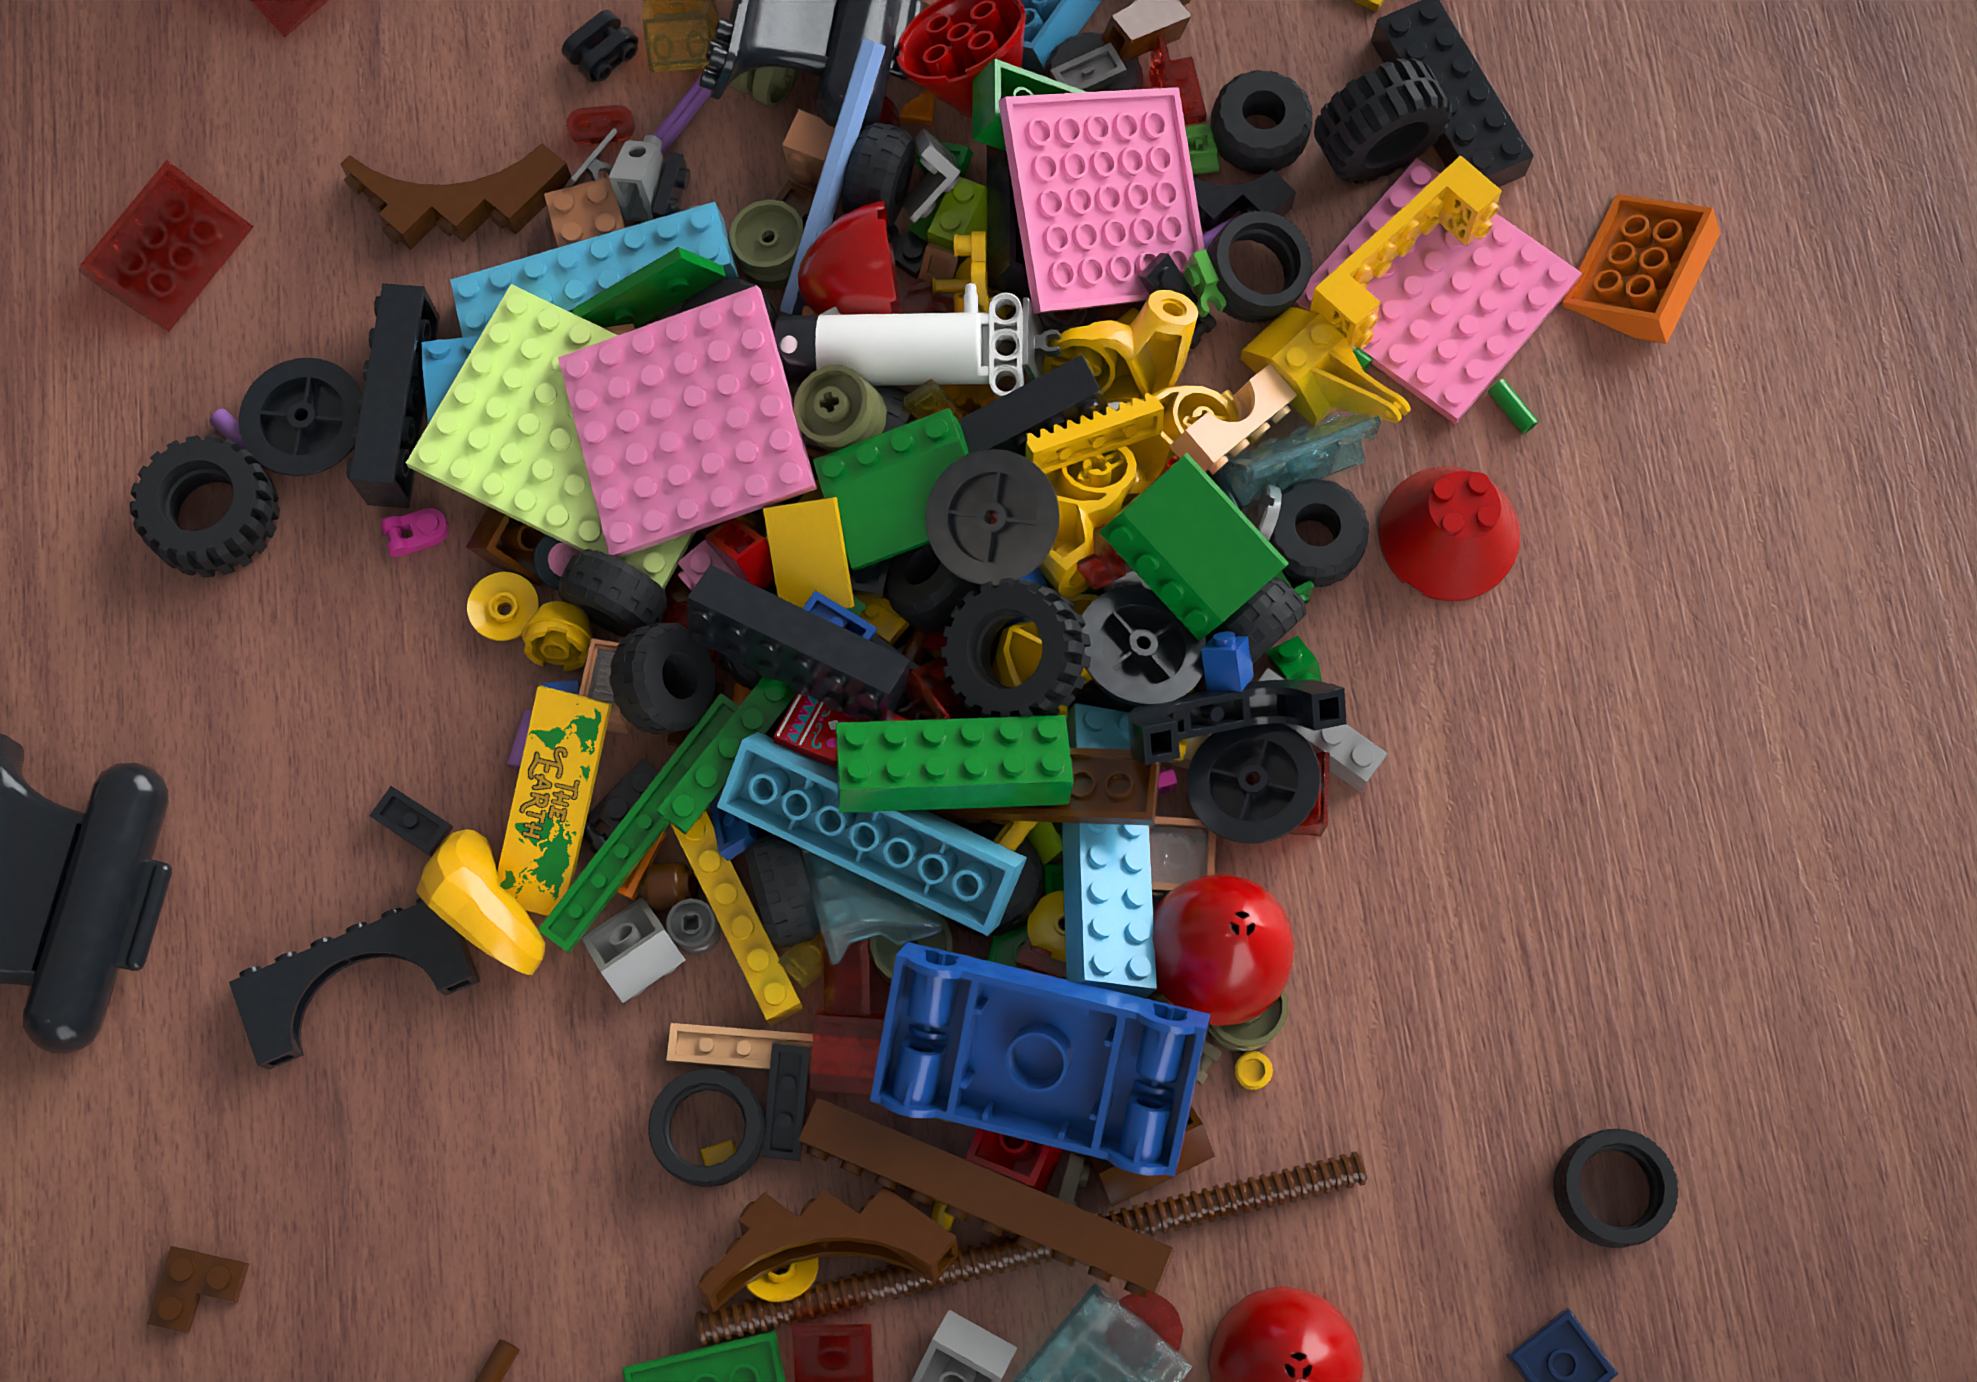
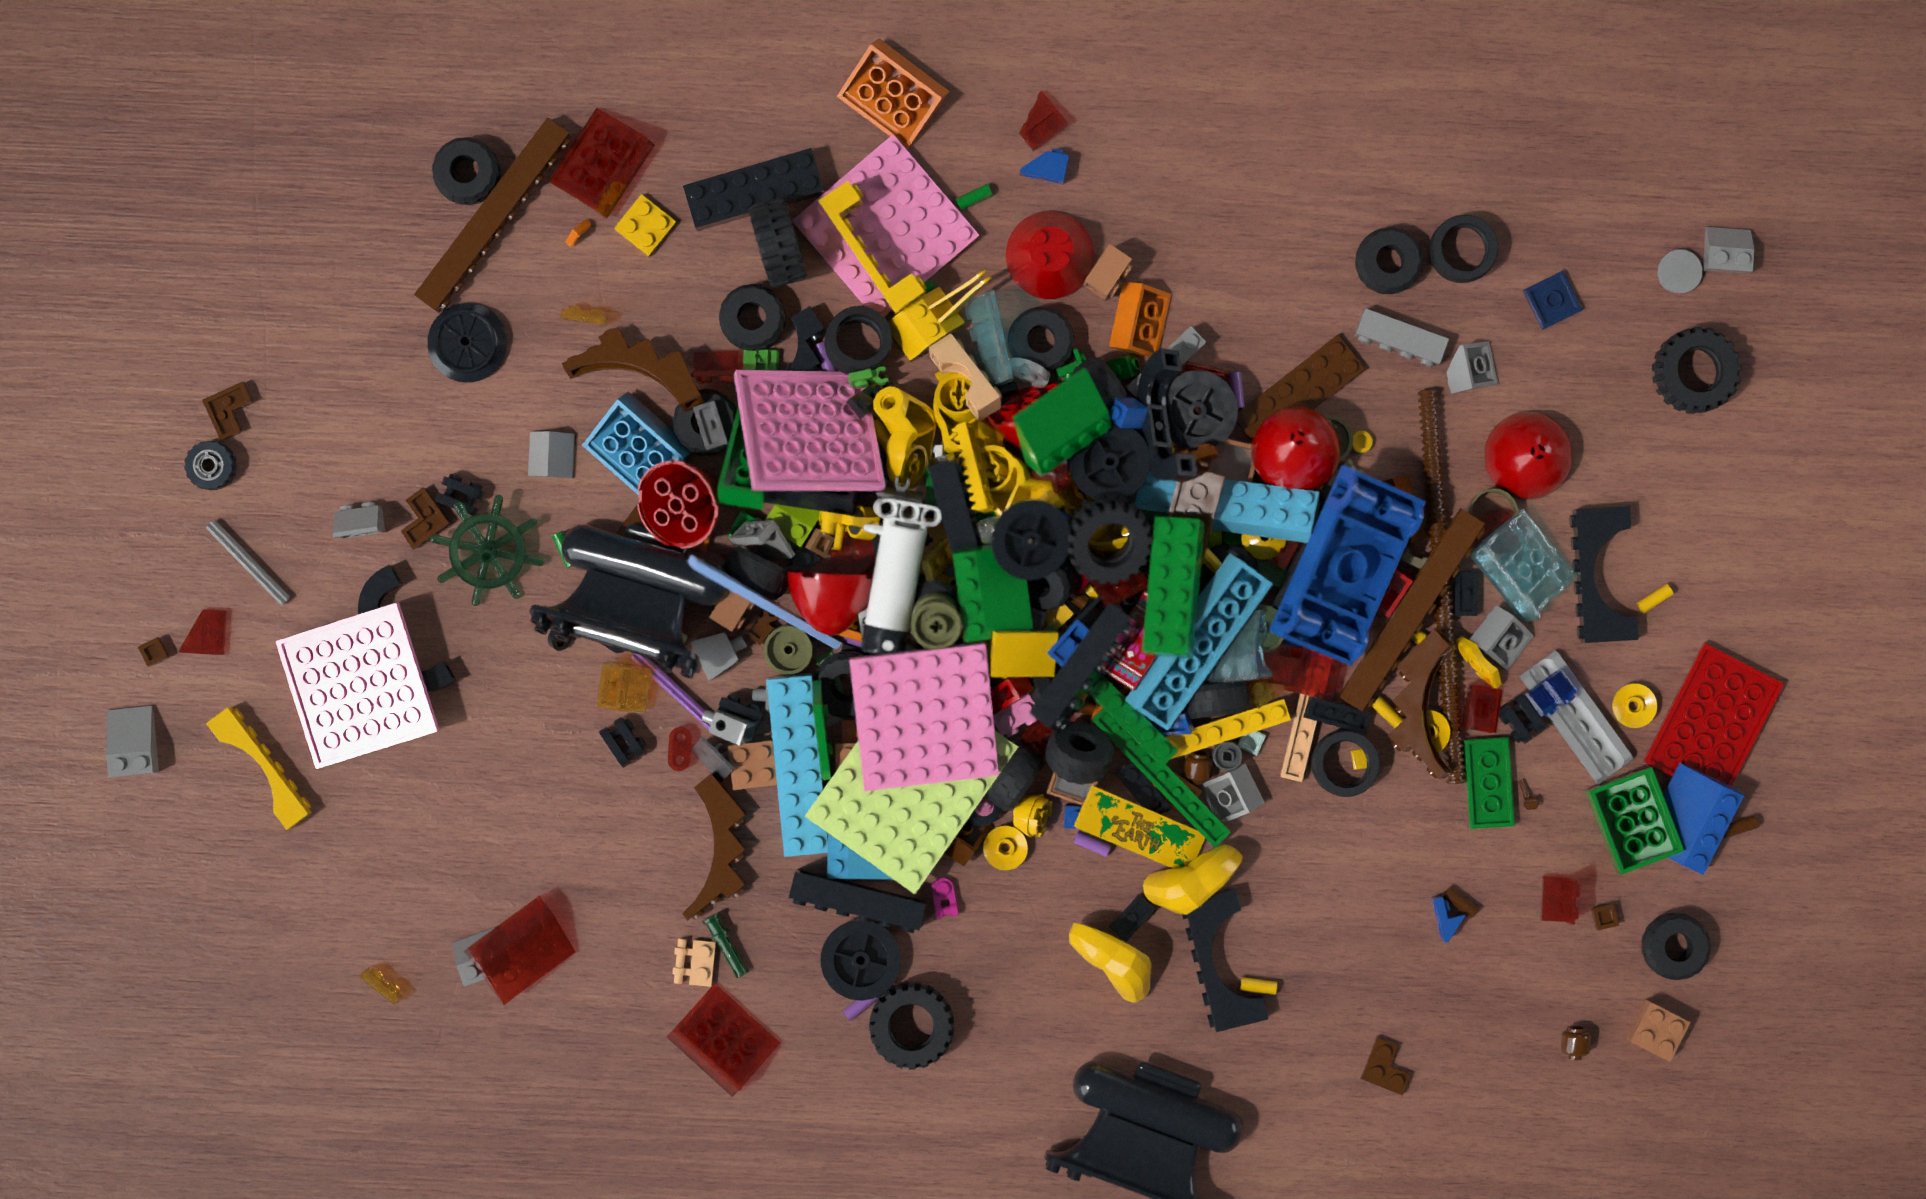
camera: 80 degrees left, 15 degrees up
(282, 204) = (701, 964): none -> light nougat plate
(317, 1045) = (1258, 986): none -> yellow hinge
(325, 221) = (721, 936): none -> dark green pin
(333, 794) = (1123, 964): none -> yellow piece
(452, 1353) = (1446, 924): none -> blue slope
(723, 970) = (1251, 742): none -> light aqua tile
(749, 152) = (718, 653): none -> light grey torso
(806, 1187) = (1387, 712): none -> yellow hinge
(914, 1331) = (1472, 654): none -> yellow tile
(1028, 1292) = (1466, 593): none -> black plate
(1182, 798) = (1203, 453): none -> orange plate
(1212, 1306) = (1506, 495): none -> olive piece
(1297, 851) = (1235, 383): none -> medium lavender hinge
(1337, 970) = (1305, 385): none -> reddish brown plate
(1383, 678) = (1139, 319): none -> orange slope
(1416, 1238) = (1472, 368): none -> light grey slope
(1441, 1107) = (1401, 337): none -> light grey brick
(1444, 613) = (1107, 272): none -> nougat piece
(1586, 503) = (1047, 167): none -> blue slope
(1595, 1044) = (1400, 242): none -> black tyre
(1651, 486) = (1042, 123): none -> clear red wing

